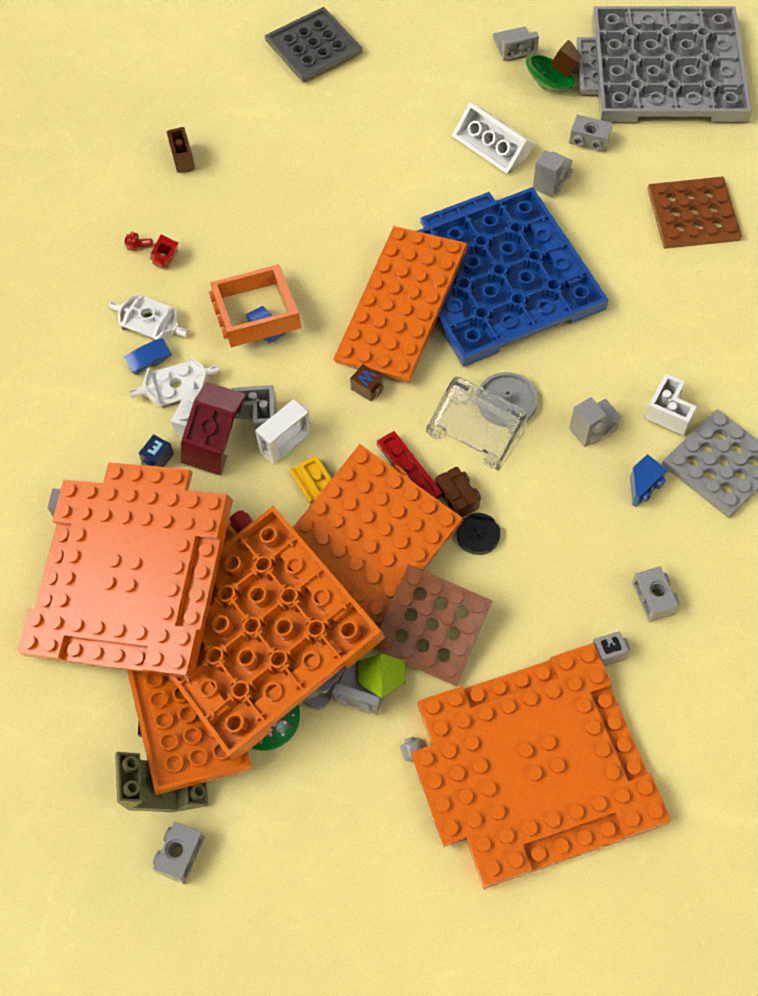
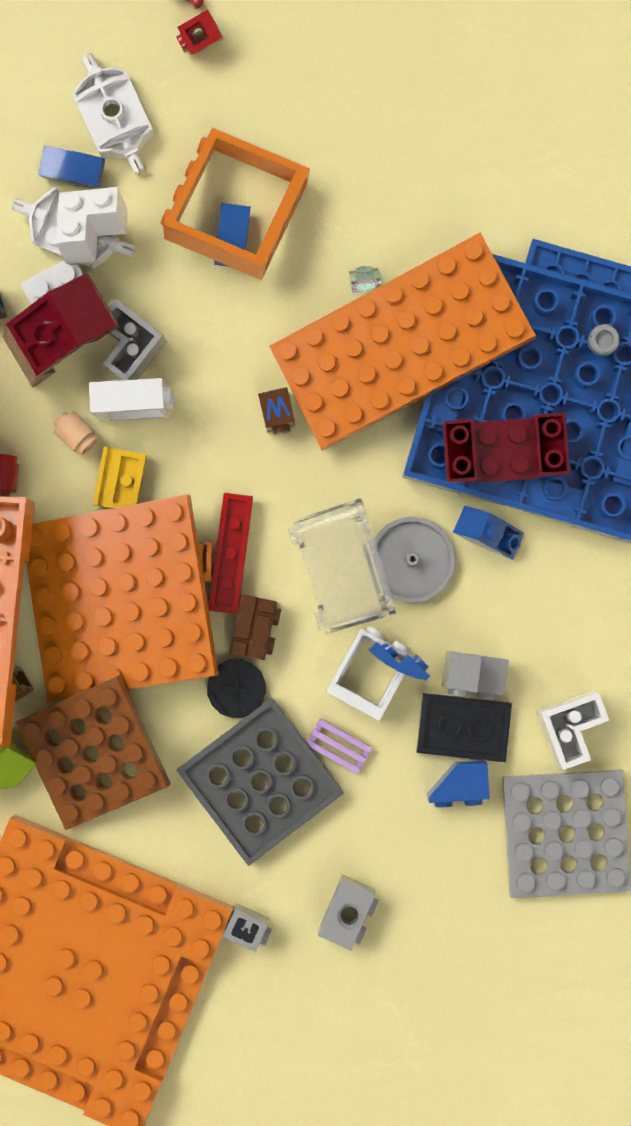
camera: 45 degrees right, 25 degrees up
(182, 360) = (85, 217): none -> white brick
(266, 475) = (75, 432): none -> light nougat brick
(353, 293) = (364, 279): none -> clear light blue plate
(500, 228) = (603, 340): none -> light grey tile
(506, 302) = (506, 449): none -> dark red slope
(532, 354) = (488, 531): none -> blue slope
(548, 483) = (354, 699): none -> white window
(548, 579) = (232, 820): none -> dark grey piece
(560, 436) = (409, 666): none -> blue slope
(562, 509) = (360, 758): none -> lavender tile
(616, 455) = (464, 727): none -> black tile

